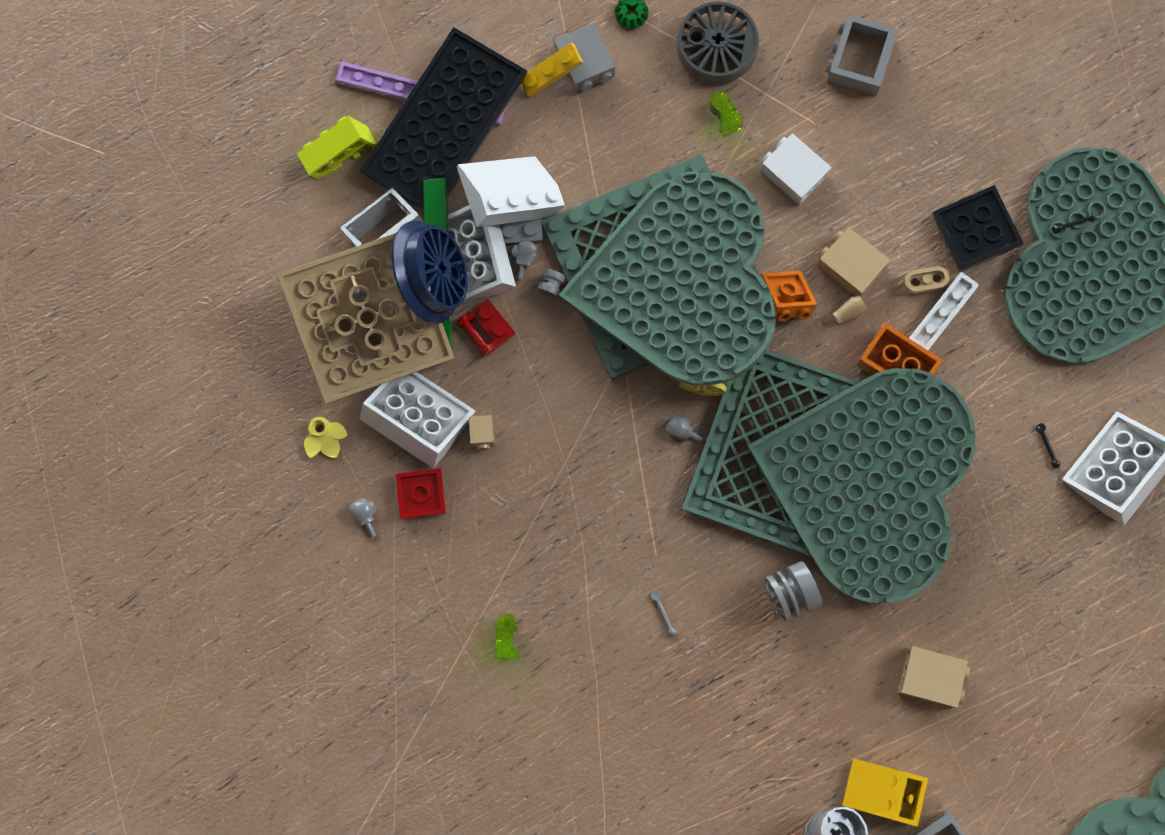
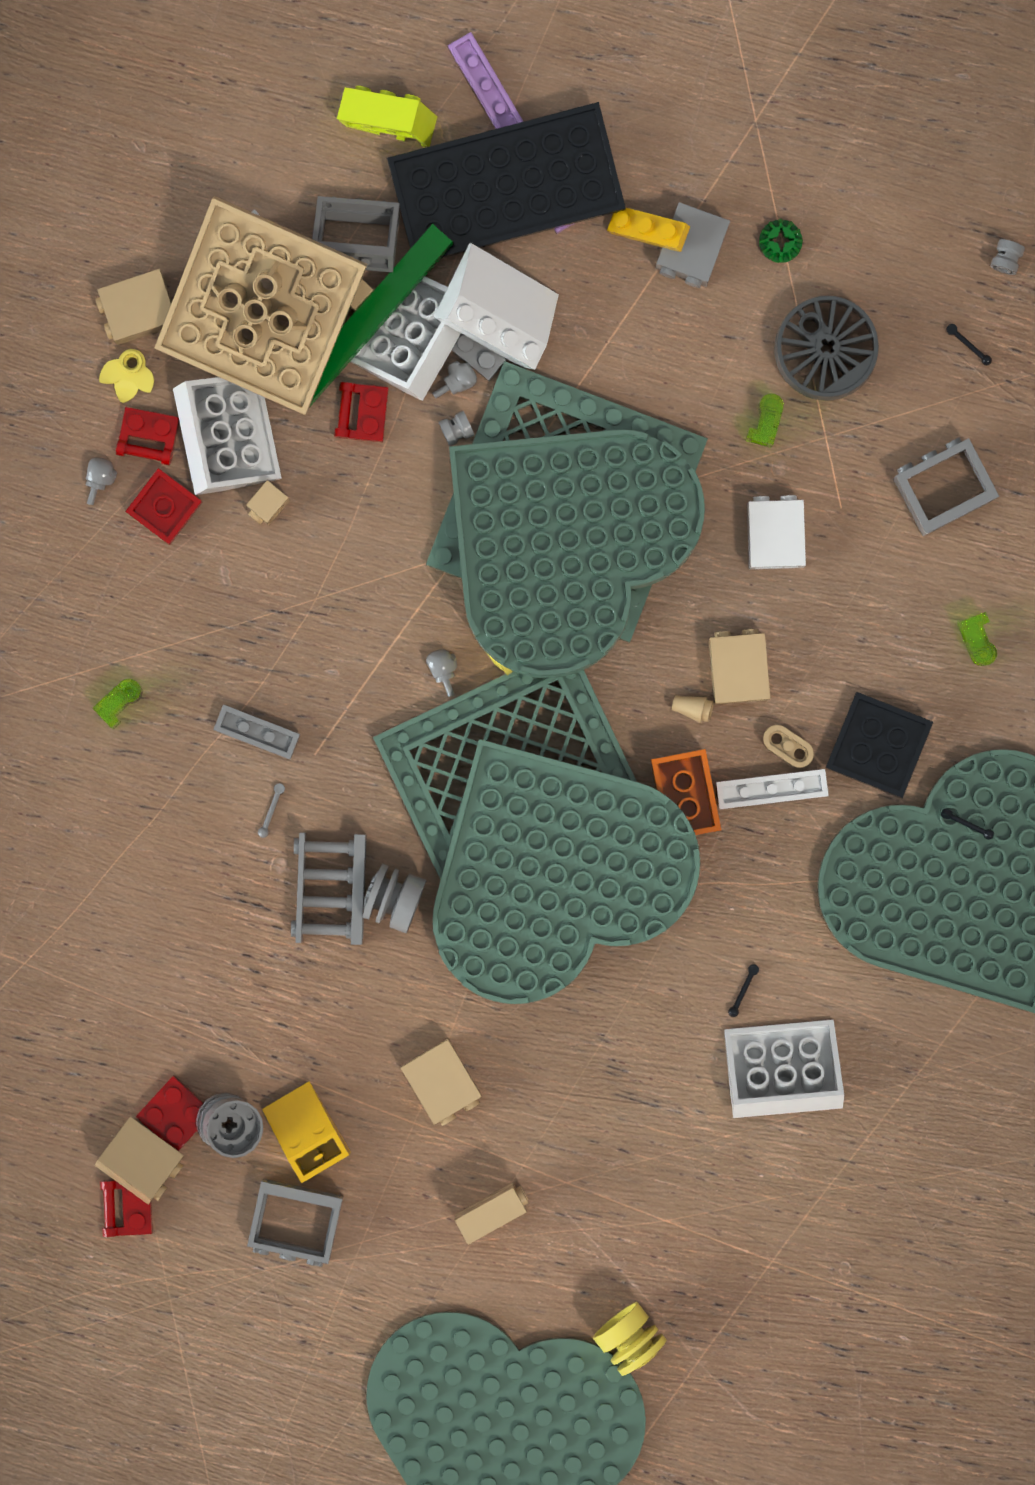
camera: 45 degrees right, 10 degrees up
(290, 393) = (134, 306): none -> tan brick
(366, 456) = (150, 427): none -> red plate
(429, 271) = (343, 318): dark blue piece -> none
(609, 574) = (256, 732): none -> light grey plate
(754, 602) = (354, 875): none -> light grey fence
(790, 294) = (650, 641): orange plate -> none
(968, 120) = (976, 640): none -> clear neon green leg
(1048, 727) = (492, 1212): none -> tan brick

